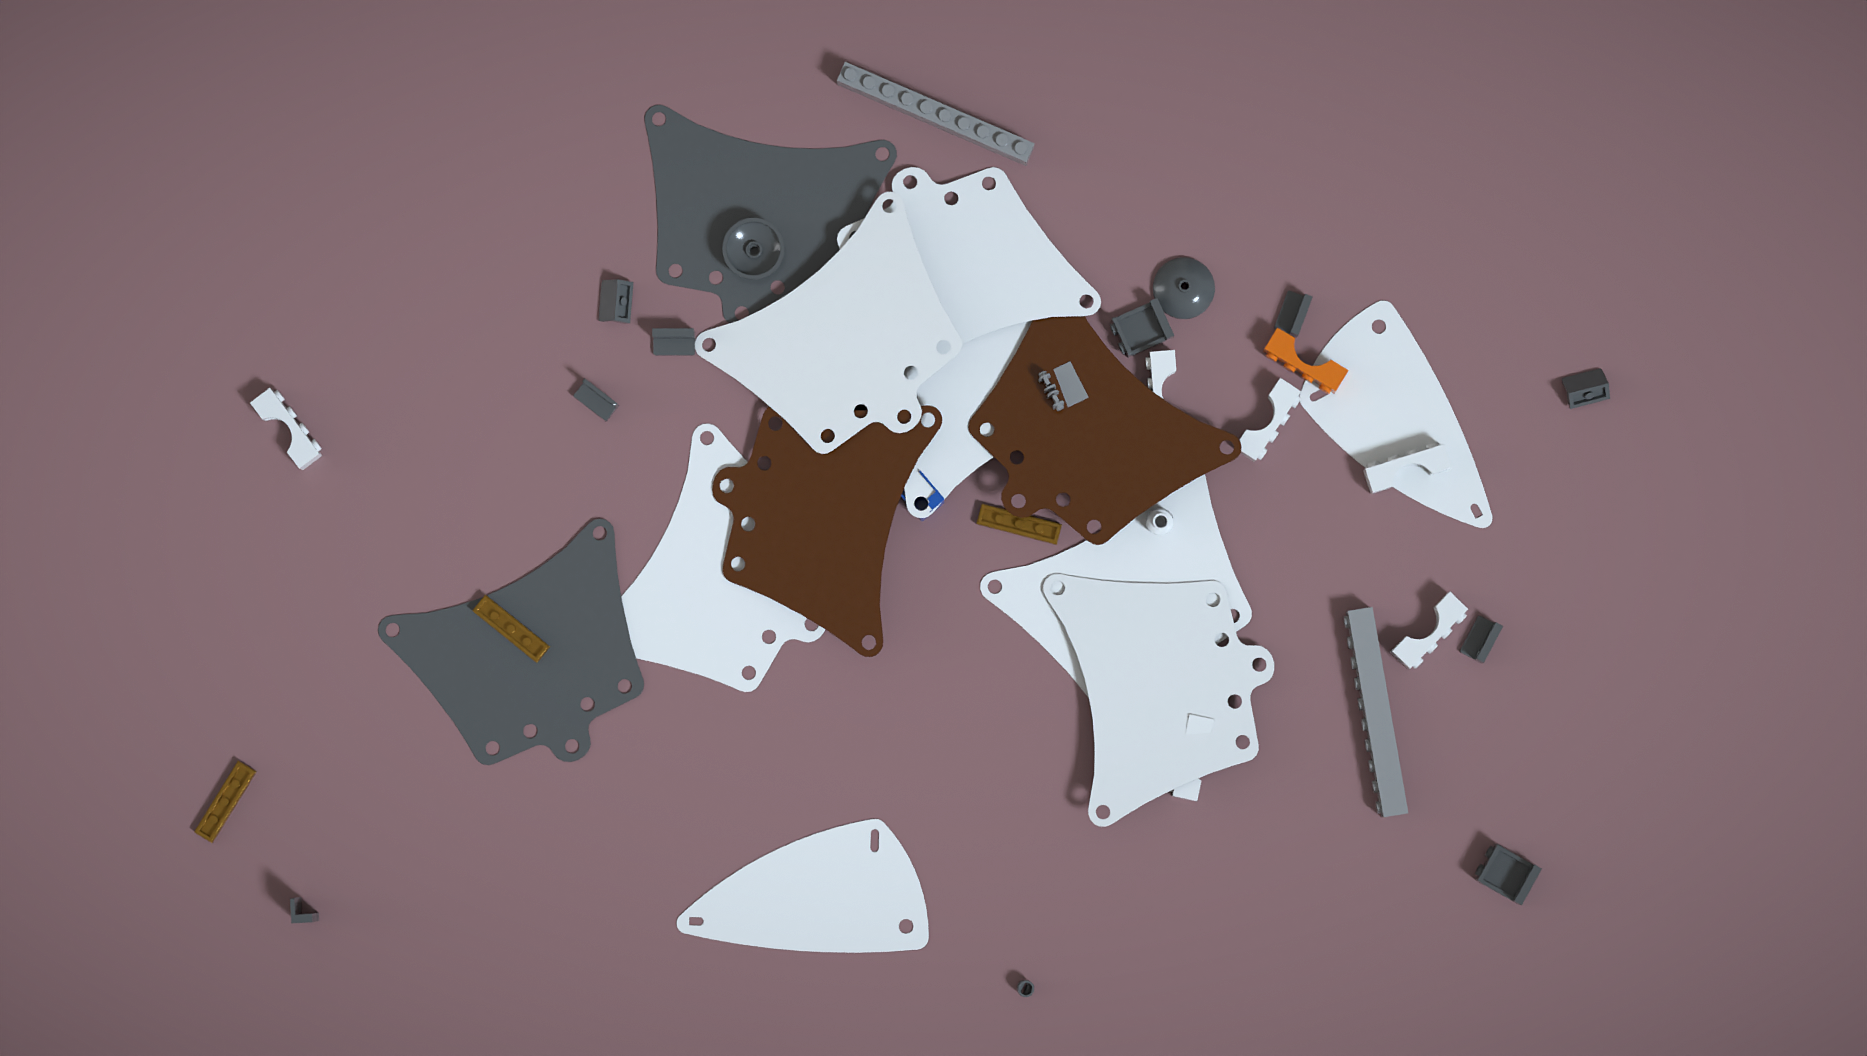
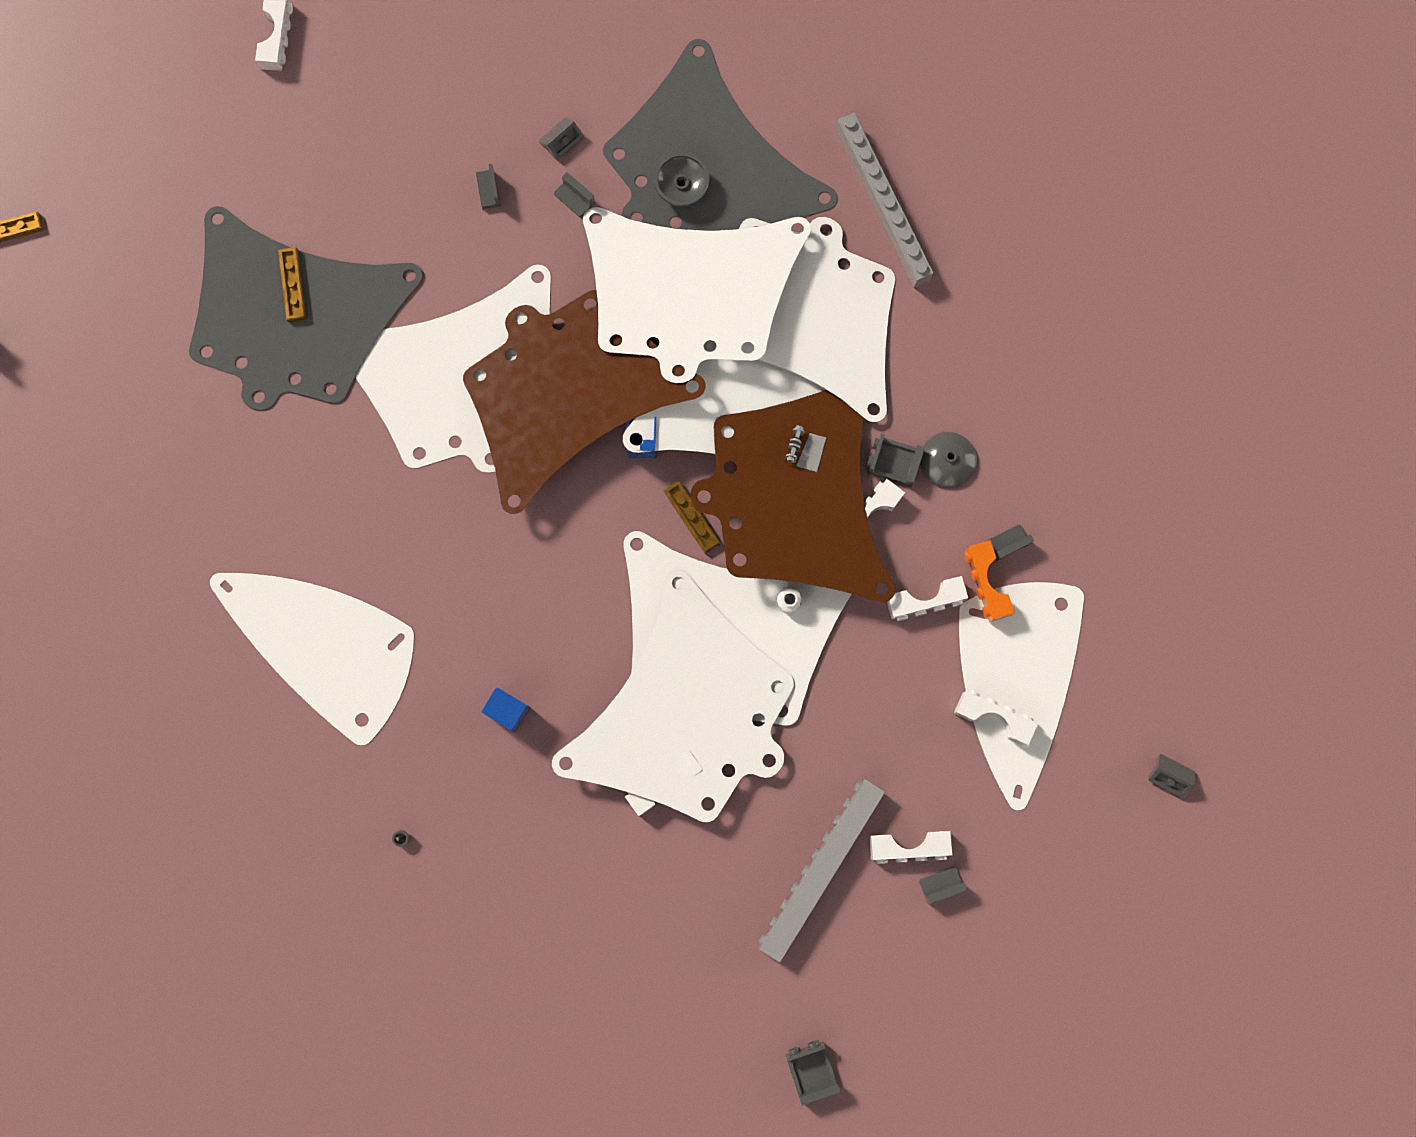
camera: 35 degrees right, 5 degrees down
(1016, 813) = (505, 709): none -> blue piece

